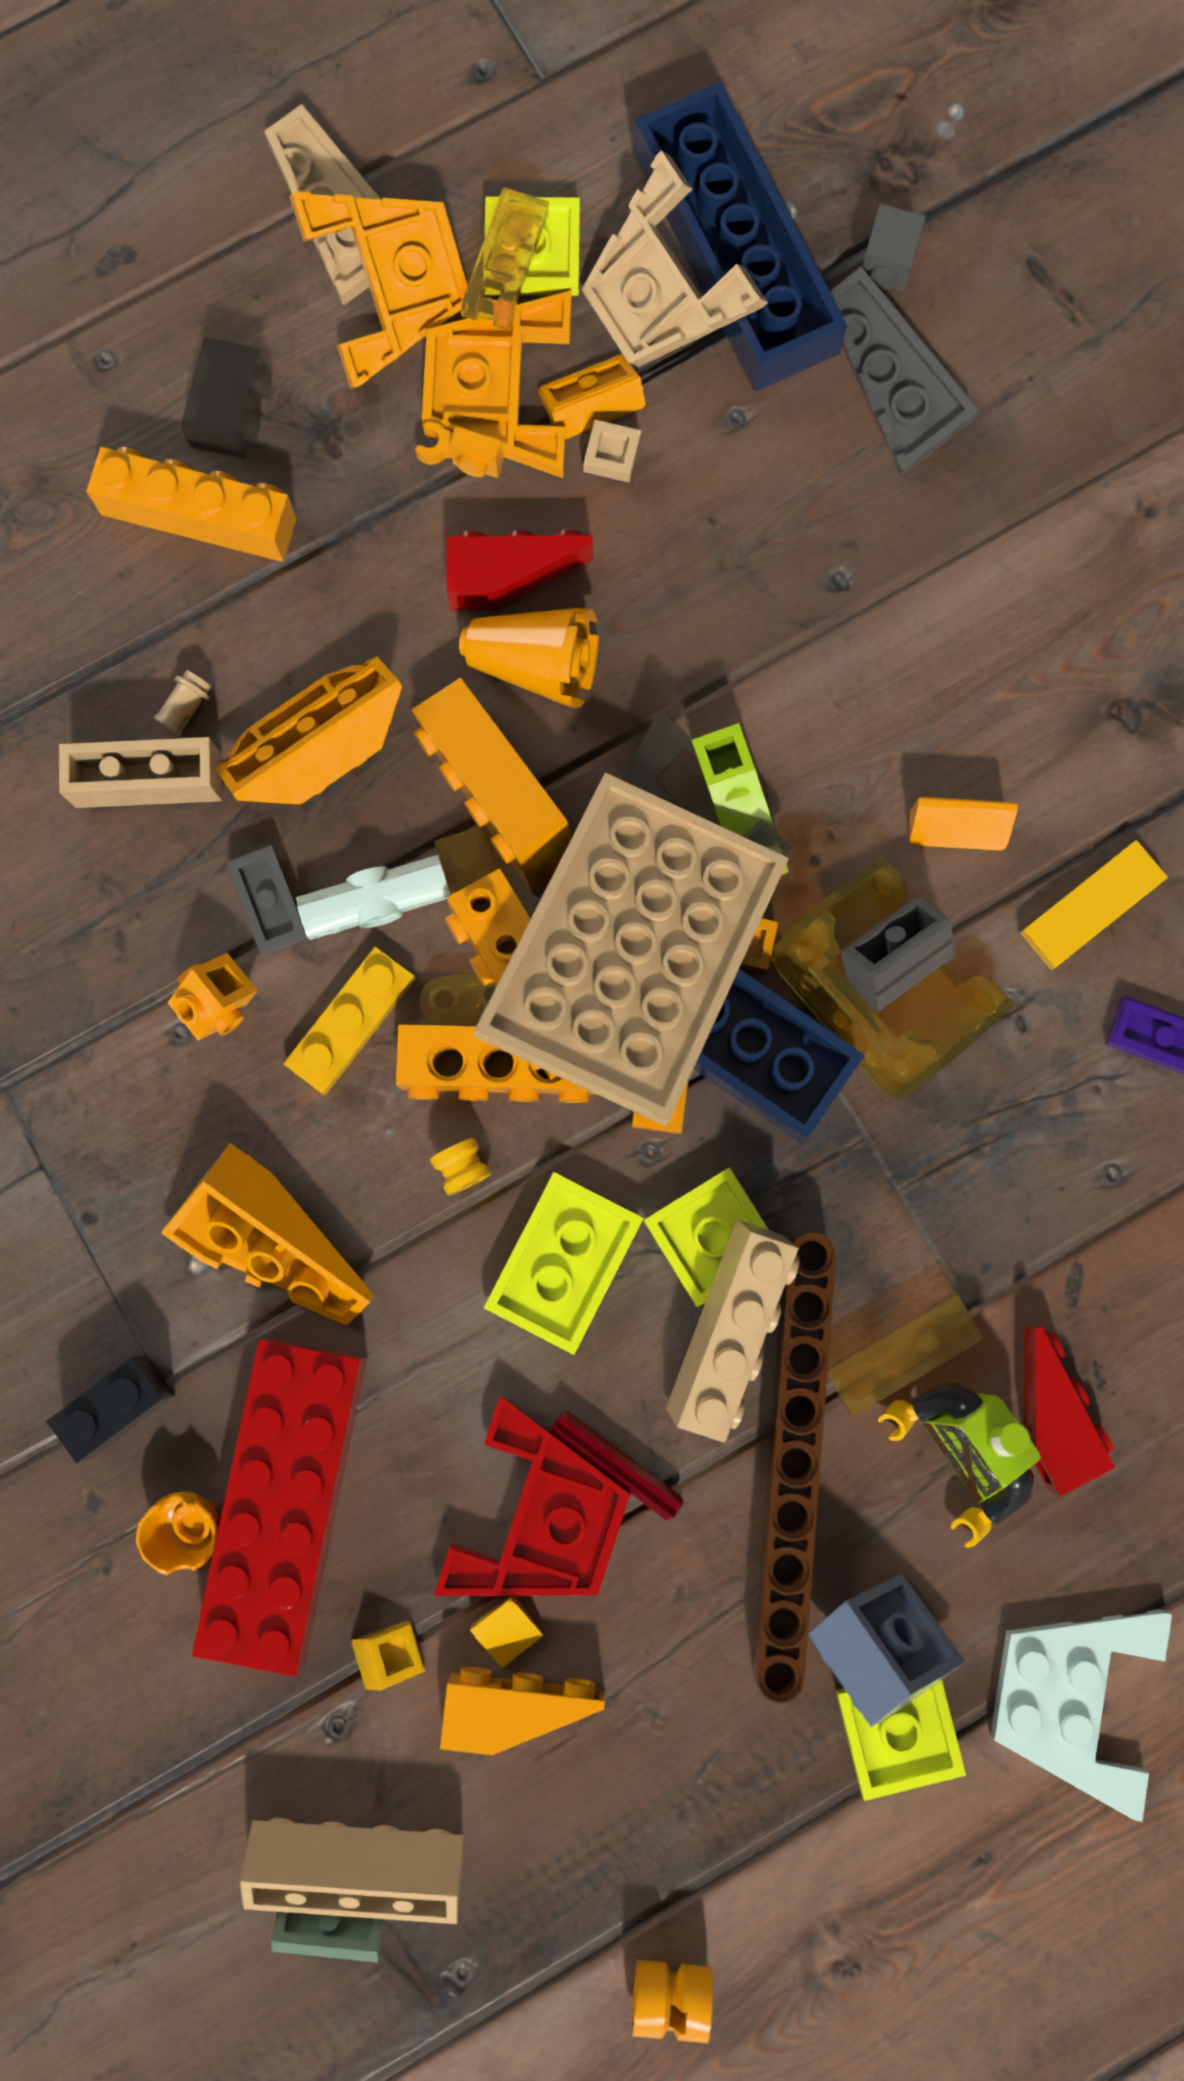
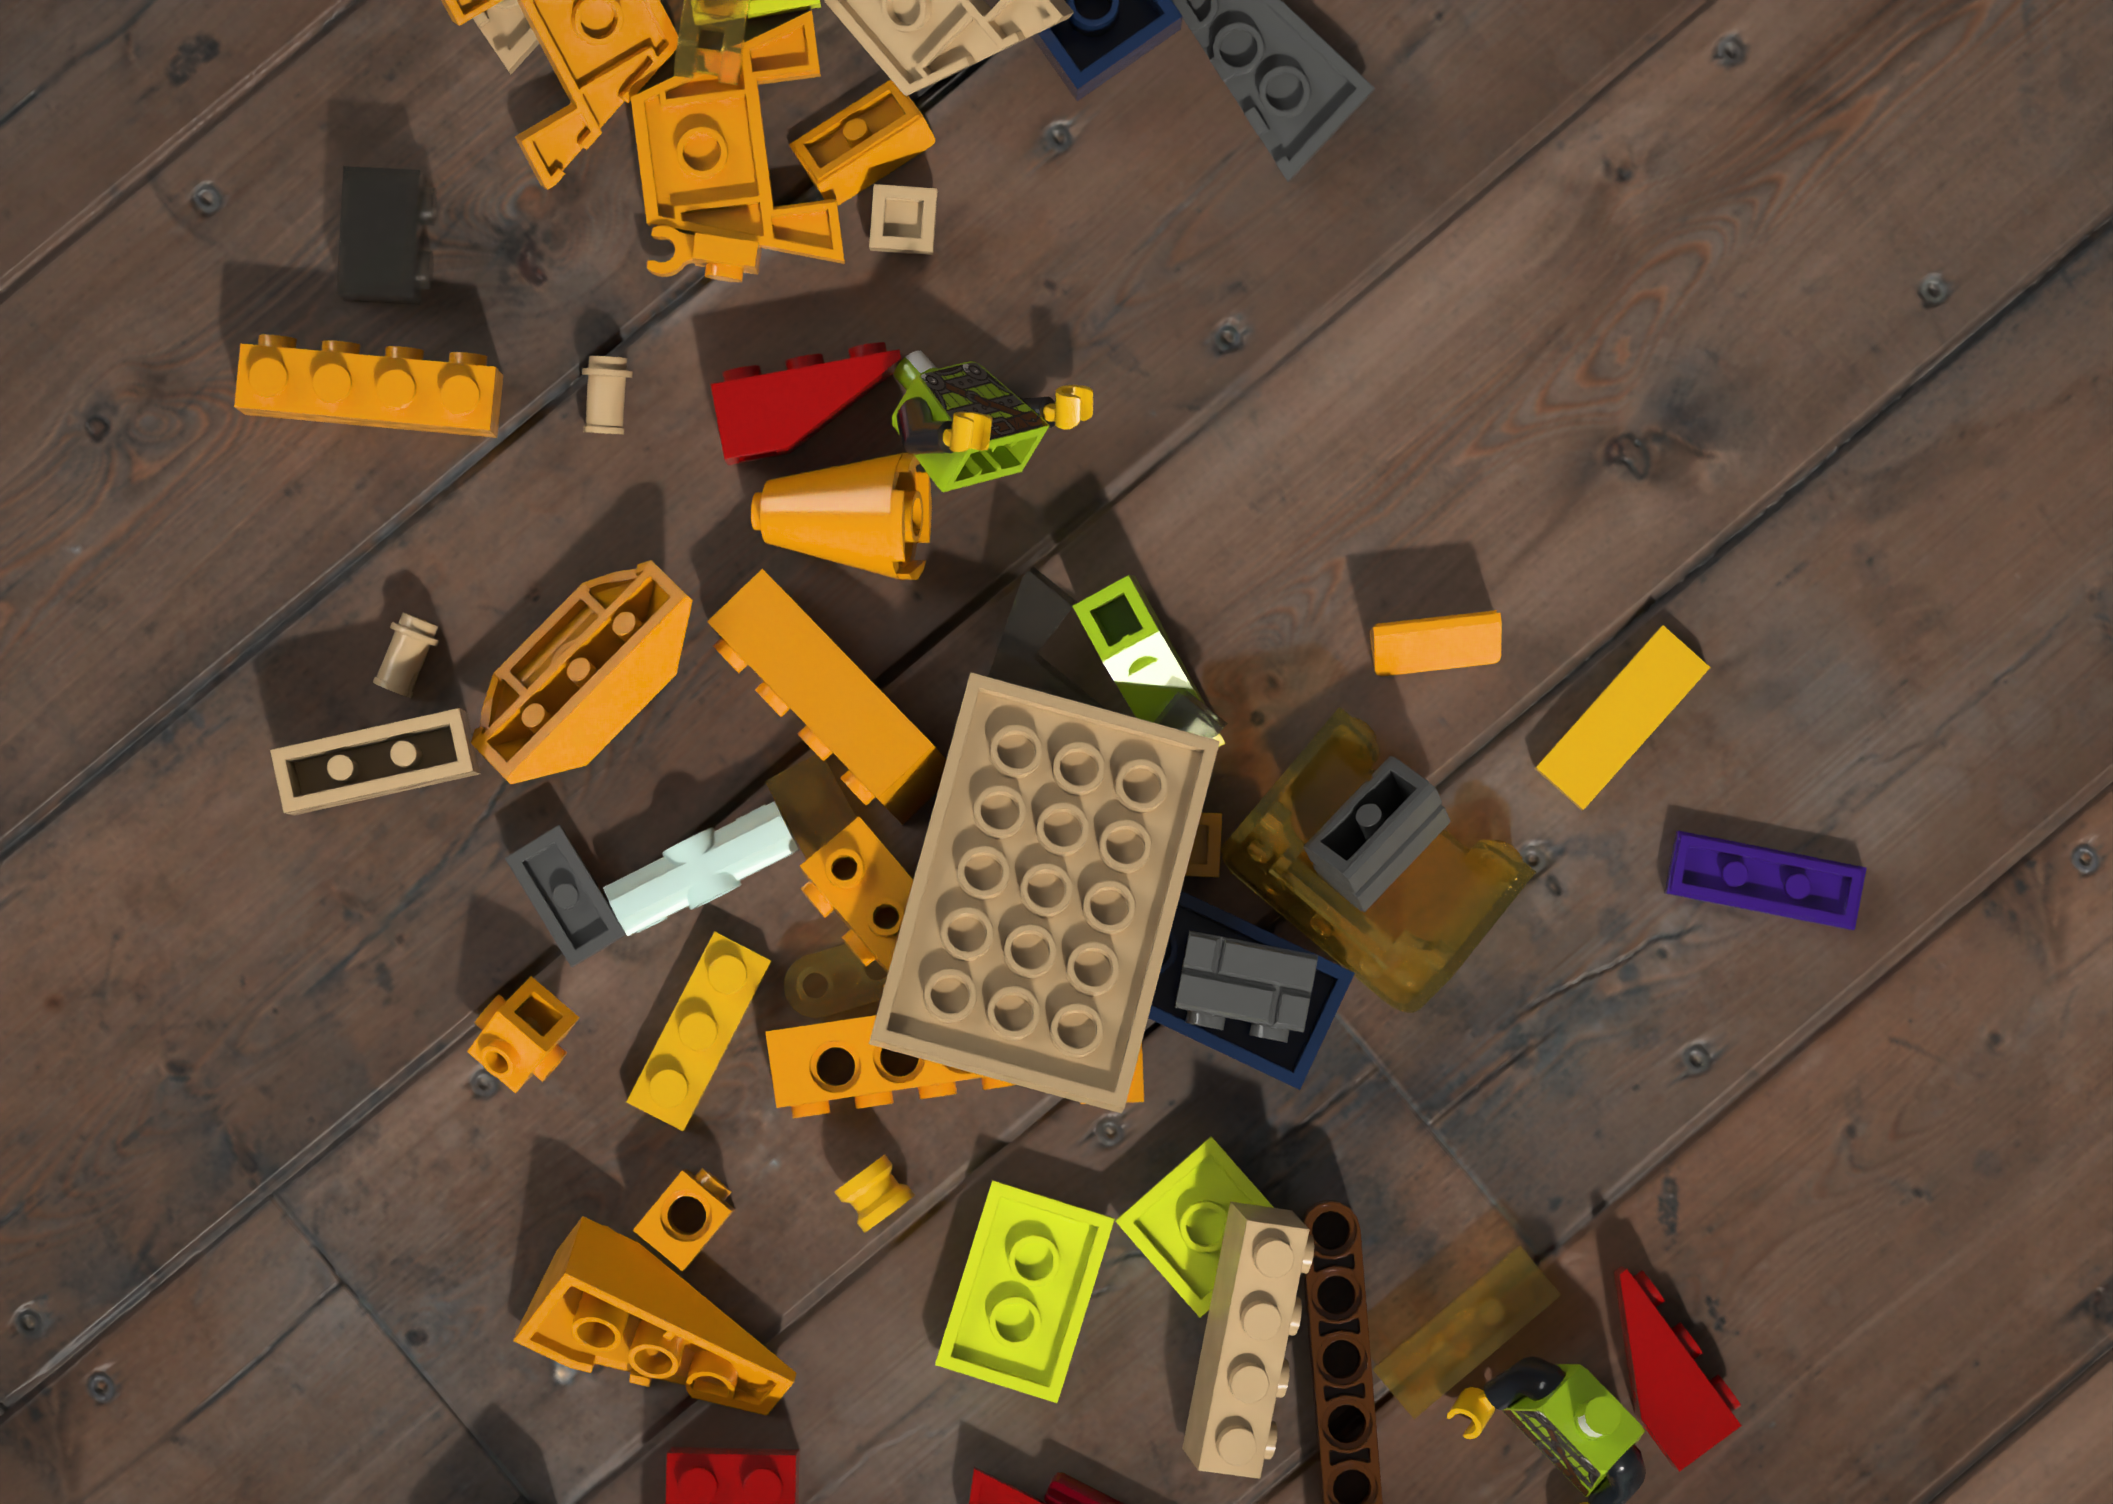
camera: 10 degrees left, 5 degrees up
(289, 1164) = (660, 1230): none -> light orange brick
(368, 539) = (606, 394): none -> tan pin
(638, 600) = (971, 425): none -> torso
(779, 1046) = (1245, 984): none -> dark grey brick

